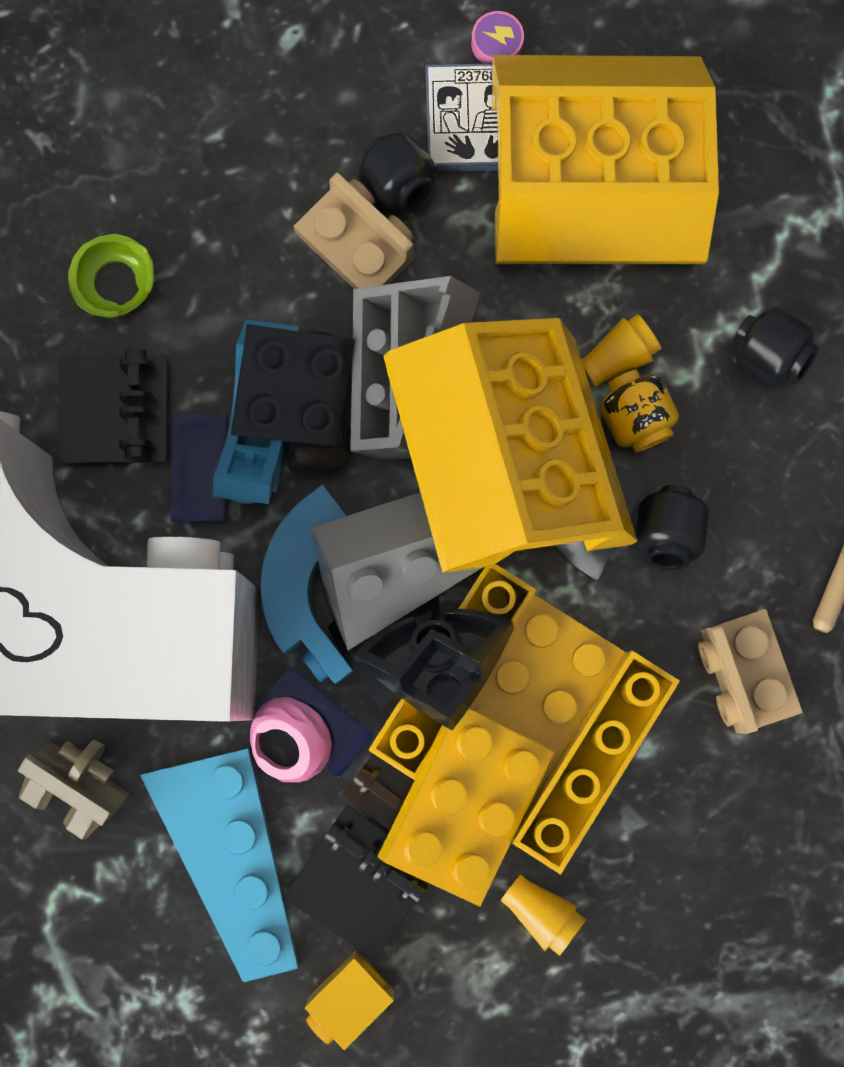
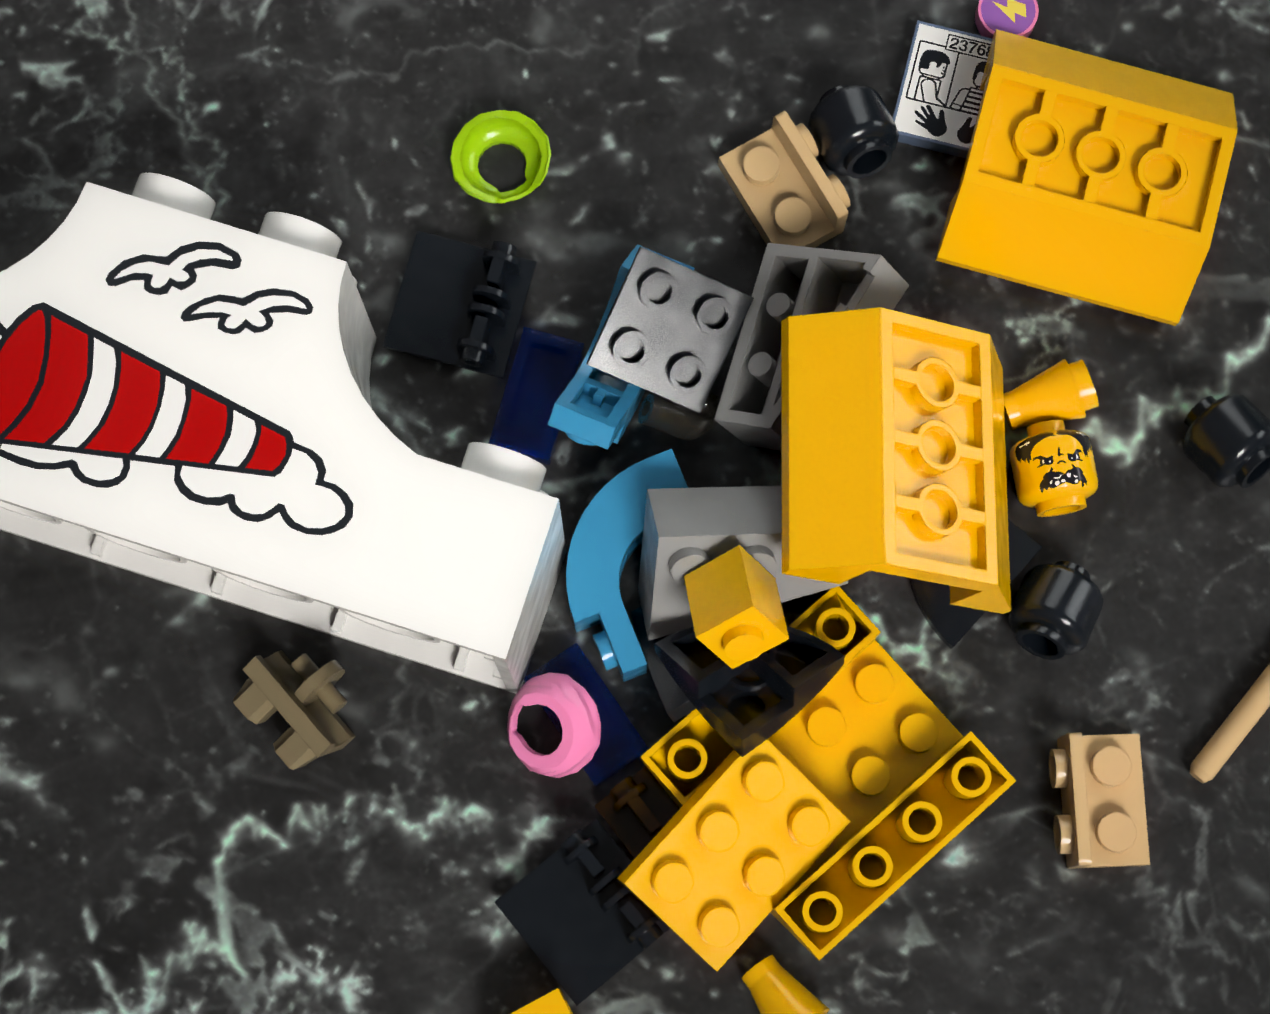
camera: 20 degrees right, 5 degrees down
(227, 848) = (446, 825): medium azure wing -> none
(412, 610) = (735, 607): none -> yellow brick

